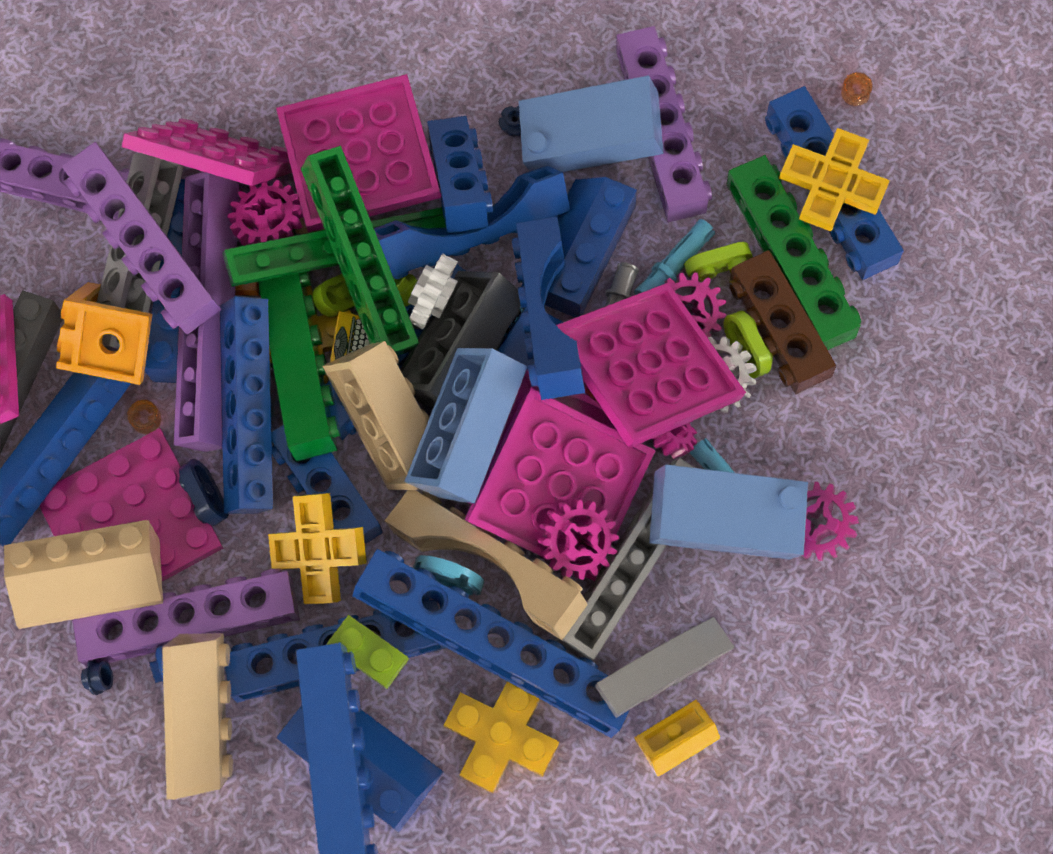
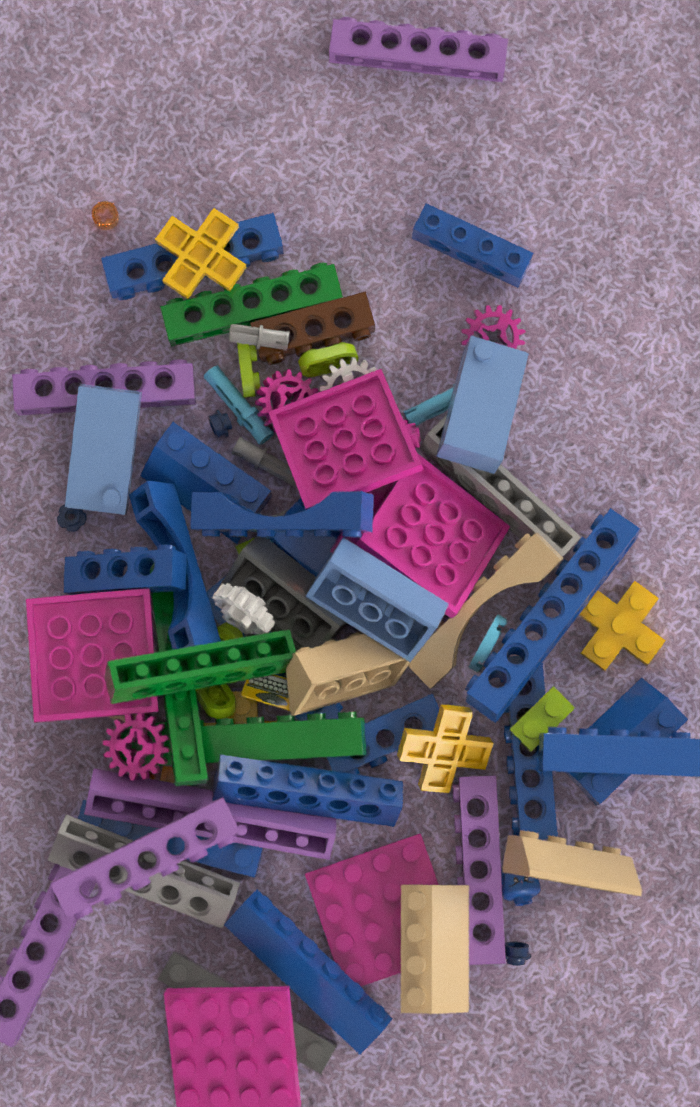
camera: 85 degrees left, 10 degrees up
(83, 331) = (220, 920): light orange bracket -> none
(134, 413) = (295, 879): clear orange bush -> none
(203, 492) = (372, 841): dark blue plate -> none
(210, 151) = (64, 786): dark pink plate -> none
(588, 529) = (475, 515): dark pink gear -> none
(648, 247) = (220, 424): none -> dark blue plate
(664, 666) = (592, 483): light grey slope -> none
(677, 737) = (644, 487): yellow slope -> none
(753, 258) = (259, 336): none -> light grey axle
(924, 478) = (472, 245): none -> blue brick

